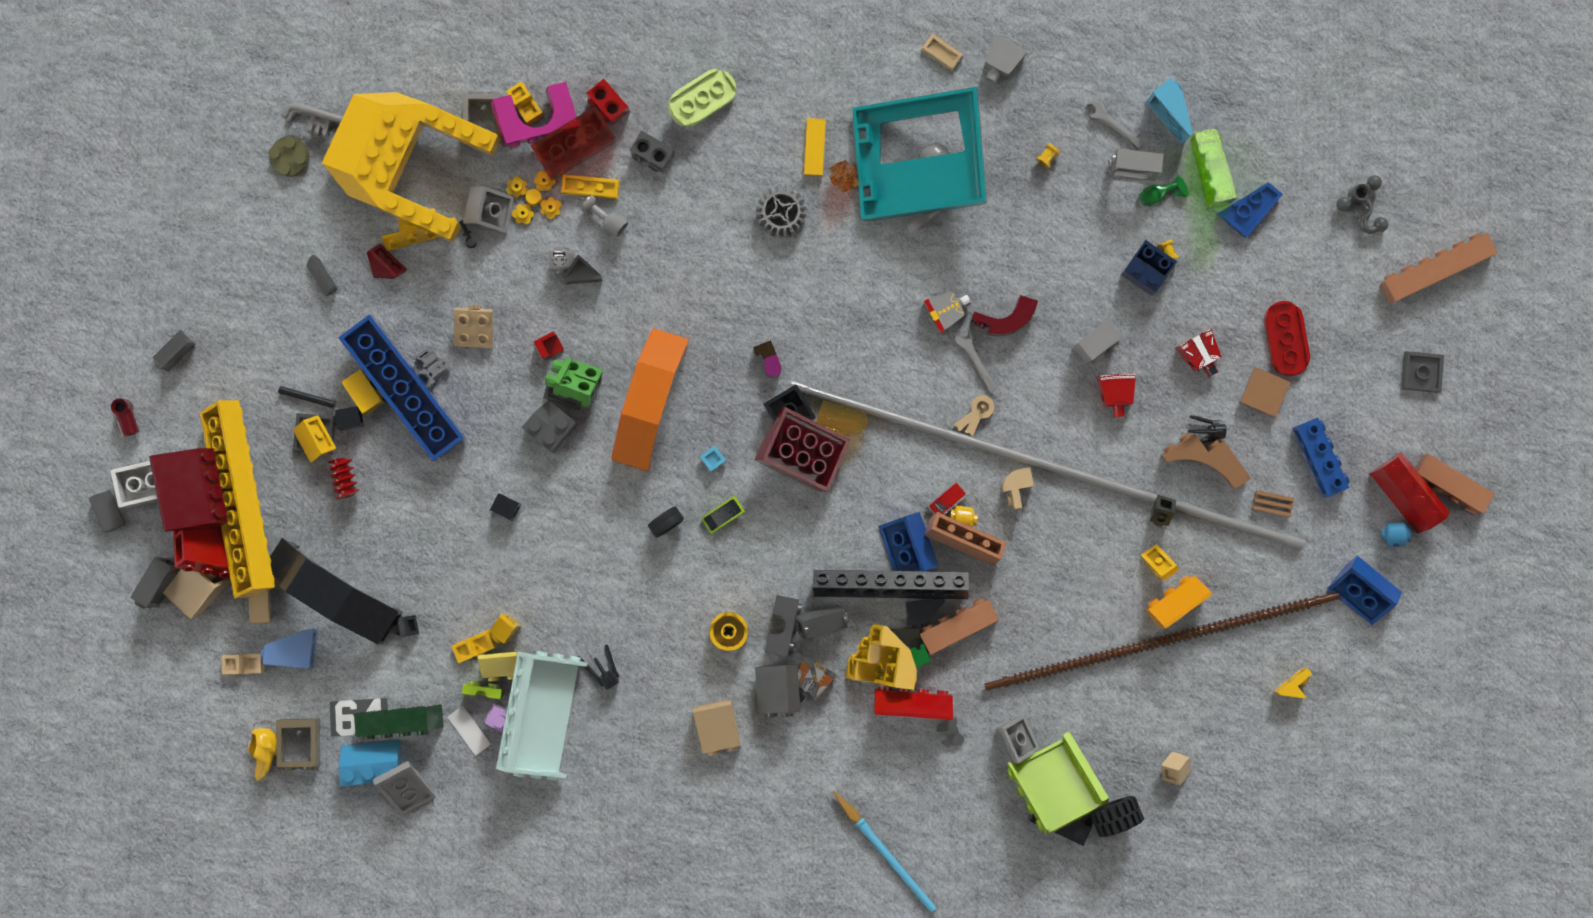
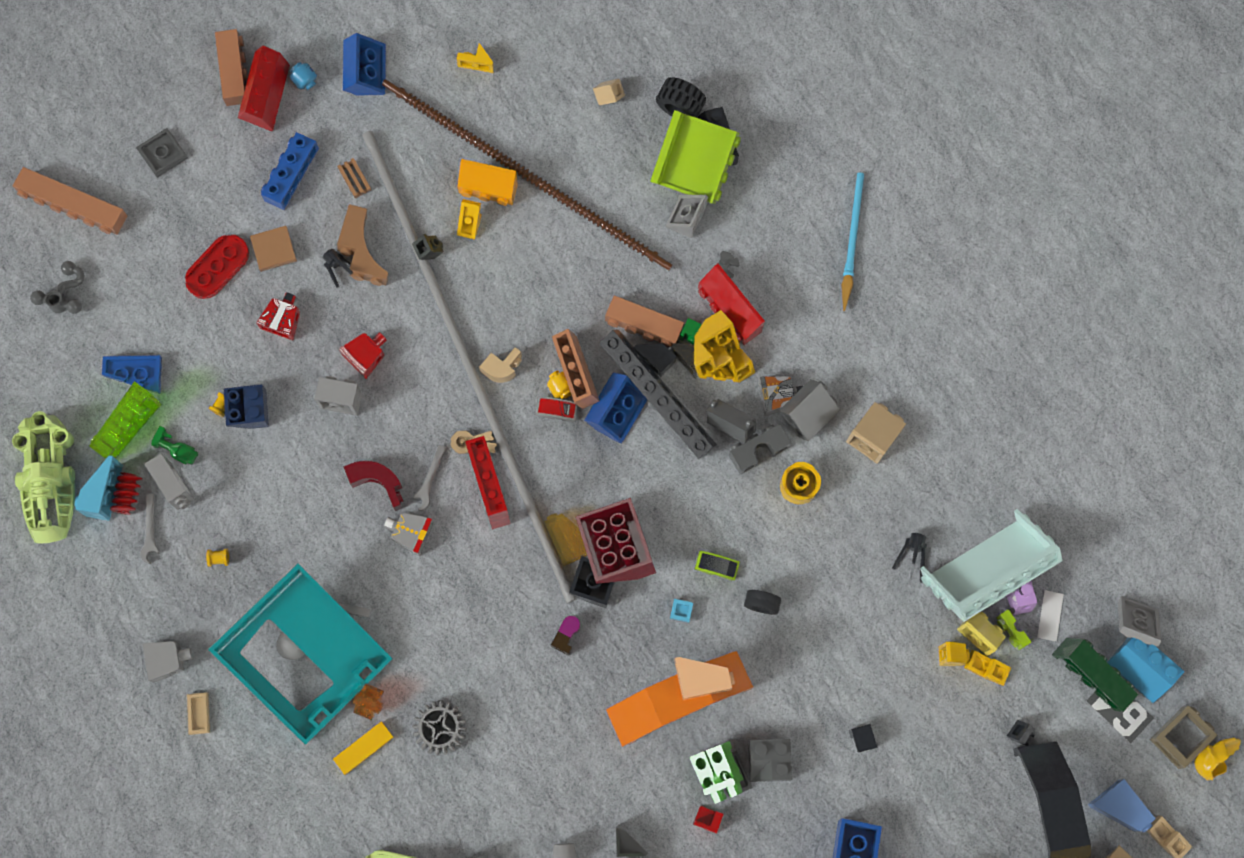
camera: 130 degrees left, 10 degrees down
(644, 417) = (702, 678): none -> light nougat slope
(930, 392) = (488, 482): none -> red window
(1155, 128) = (125, 493): none -> red piece
(1215, 76) = (45, 479): none -> yellowish green piece

